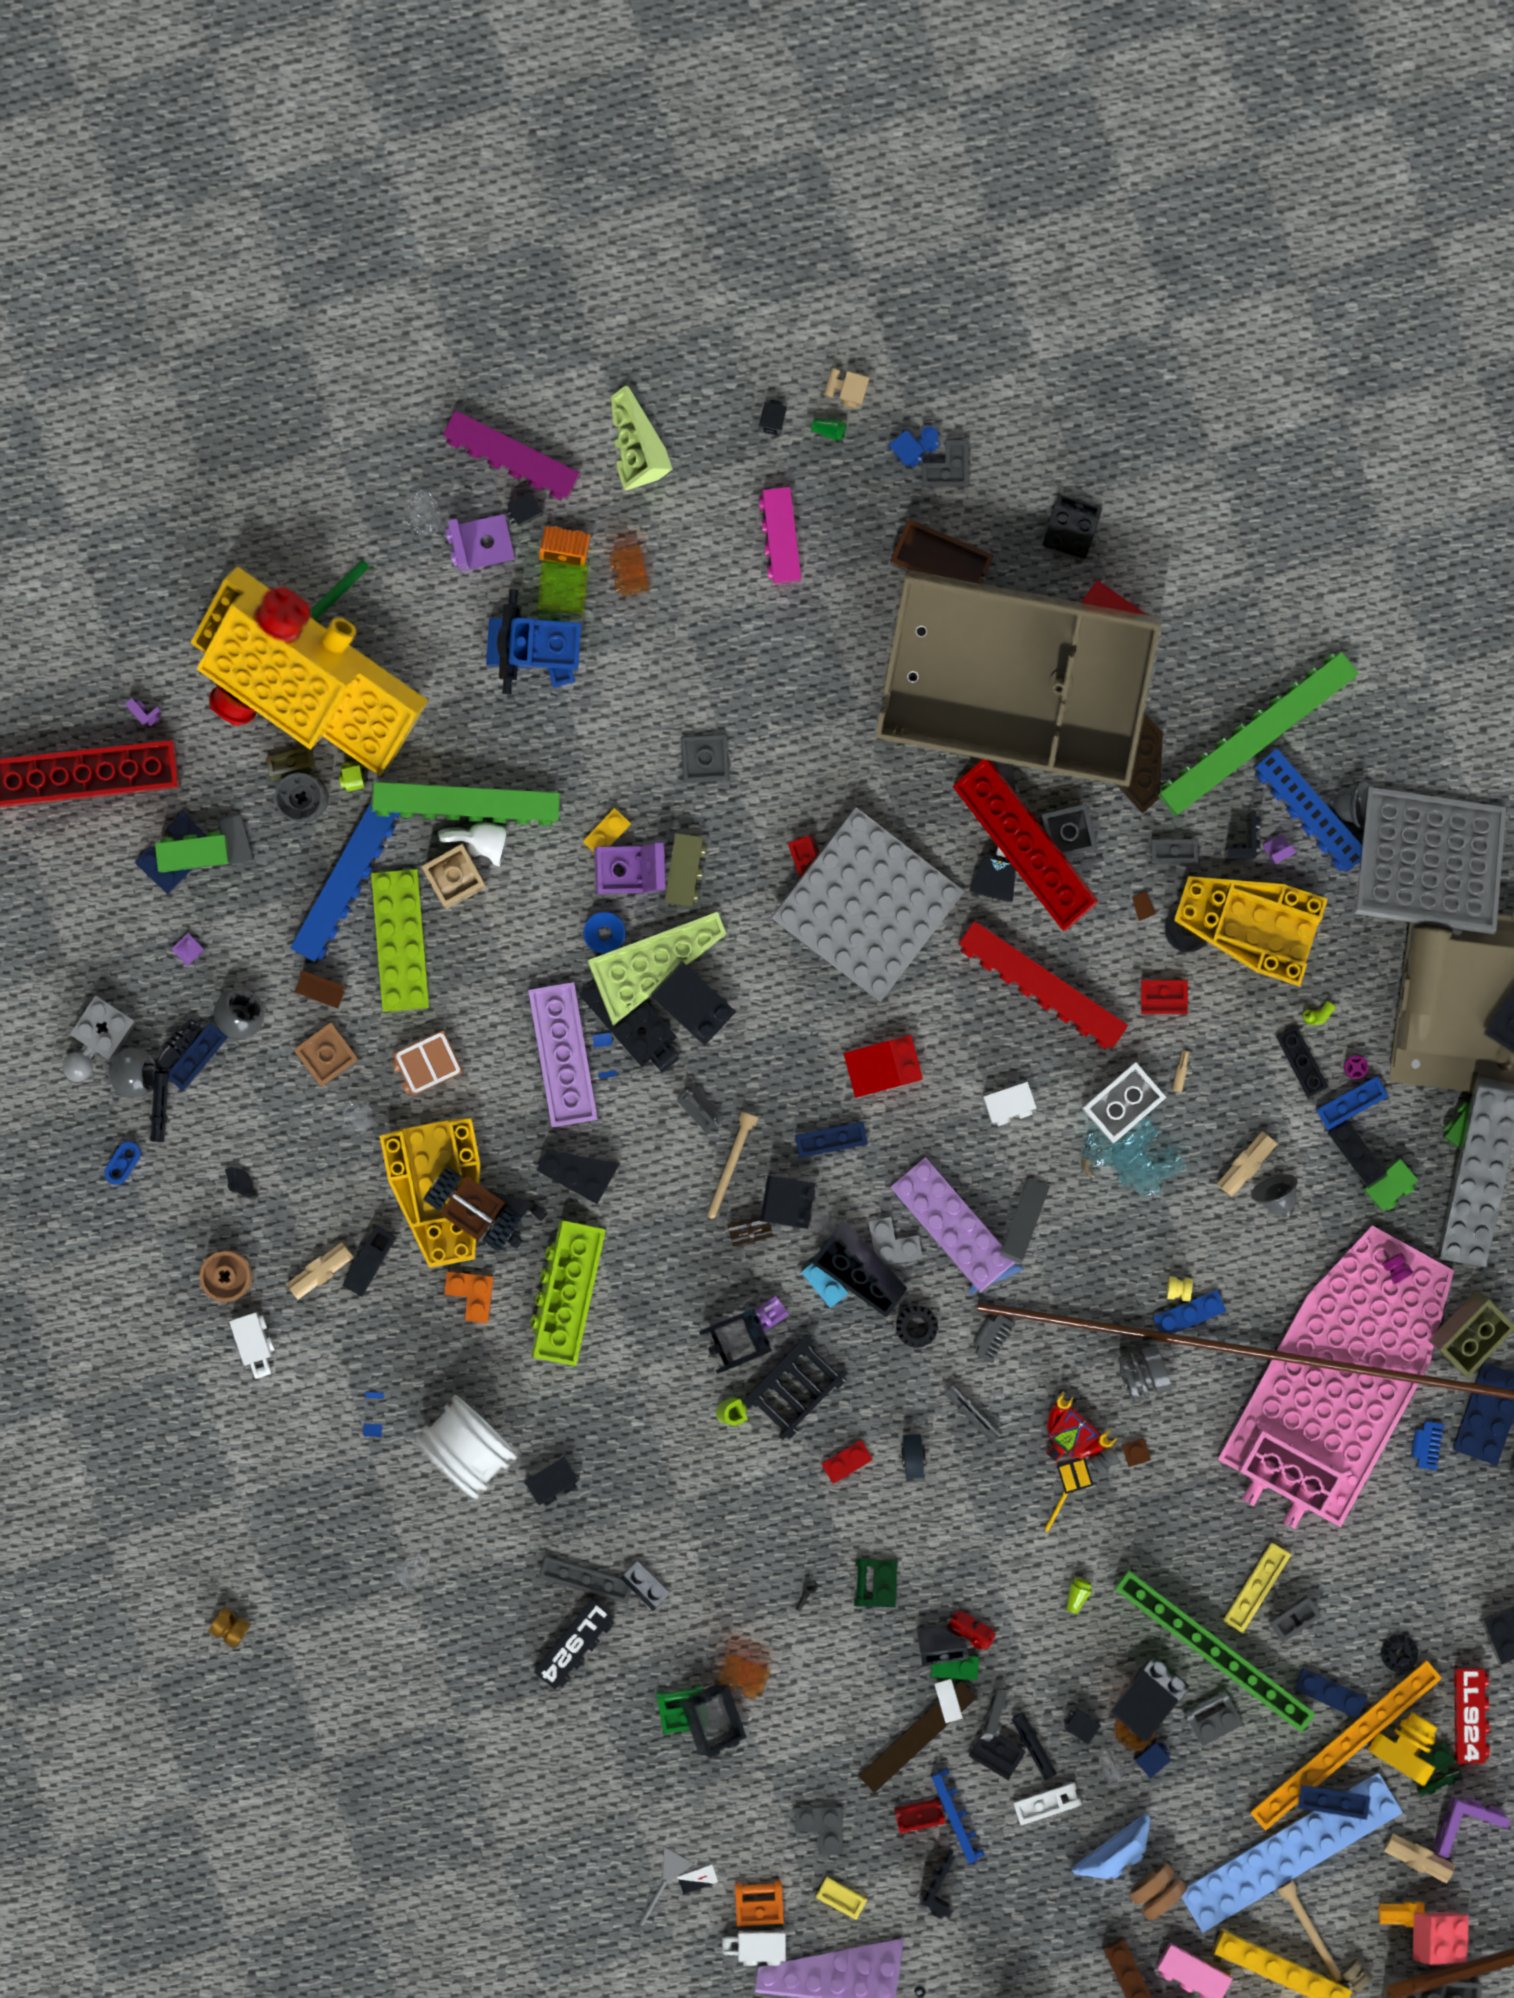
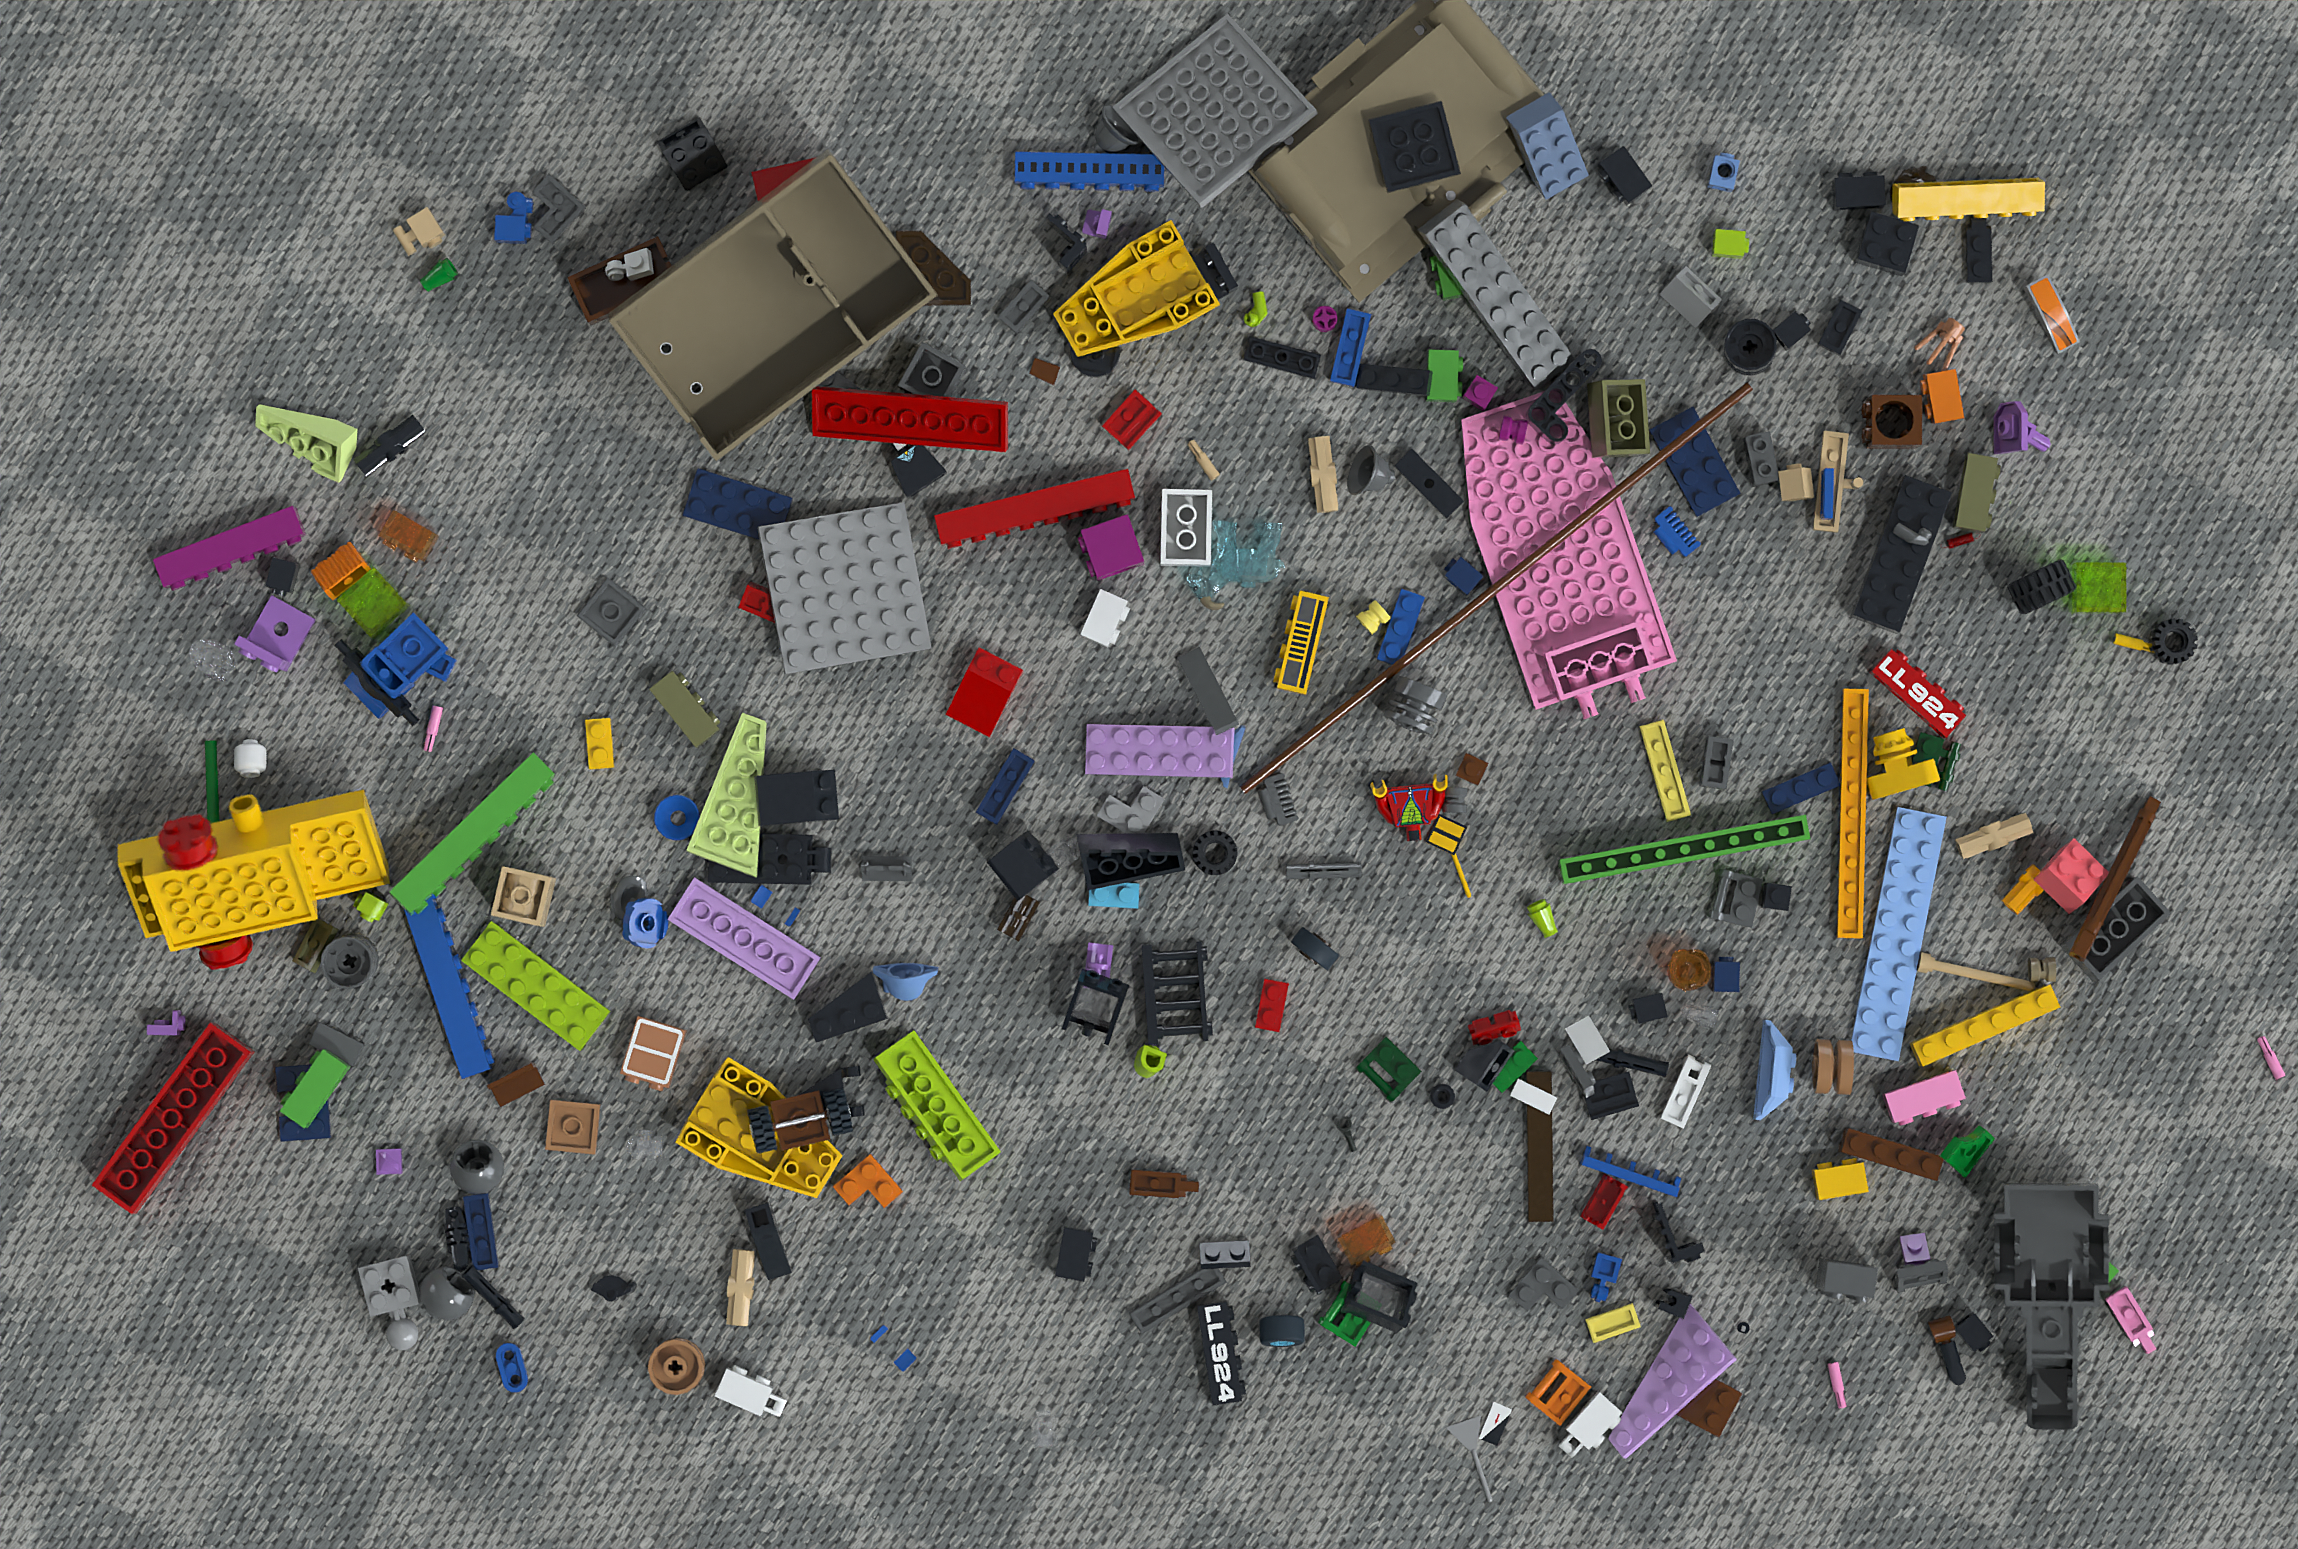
camera: 45 degrees left, 0 degrees up
(378, 602) = (250, 758): none -> white head
(465, 1447) = (984, 1297): white wheel -> none
(480, 839) = (513, 849): white piece -> none
(504, 969) = (633, 922): none -> plate
(514, 707) = (433, 725): none -> bright pink pin
(517, 951) = (627, 890): none -> dark grey hat
(628, 1673) = (1282, 1331): none -> black wheel
(635, 1192) = (905, 980): none -> medium blue hat
(642, 869) = (654, 742): medium lavender bracket -> none
(654, 1497) = (1160, 1184): none -> reddish brown hinge
(681, 501) = (389, 445): none -> black piece
(696, 1655) = (1316, 1263): none -> black bracket
(746, 1122) = (931, 842): tan piece -> none
(772, 418) = (389, 312): black slope -> none
(781, 535) = (489, 390): dark pink brick -> none
(856, 775) = (734, 504): none -> dark blue plate
(873, 1859) = (1606, 1269): none -> blue plate
(894, 1644) = (1450, 1096): none -> black plate
(895, 1932) = (1678, 1304): none -> black hinge
(959, 559) = (637, 265): none -> white plate
(1021, 1703) = (1587, 1040): none -> white sticker
(1062, 1063) = (1111, 548): none -> magenta brick
(1083, 1967) = (1840, 1179): none -> yellow brick
(1117, 1255) = (1302, 642): none -> brick
(1149, 1698) = (1674, 935): black slope -> none
(1239, 1744) = (1776, 897): none -> black brick
(1258, 734) = (991, 156): bright green brick -> none
(1264, 1324) = (1462, 575): none -> dark blue brick
(1307, 1228) = (1417, 471): none -> black tile
(1319, 961) = (1215, 271): none -> black bracket
(1333, 1802) = (1888, 863): dark blue plate -> none
(1394, 1643) = (1807, 701): black gear -> none
(1402, 1221) = (1480, 393): none -> magenta brick
(1453, 1817) = (1985, 779): medium lavender bracket -> none
(1458, 1281) = (1566, 391): none -> black beam

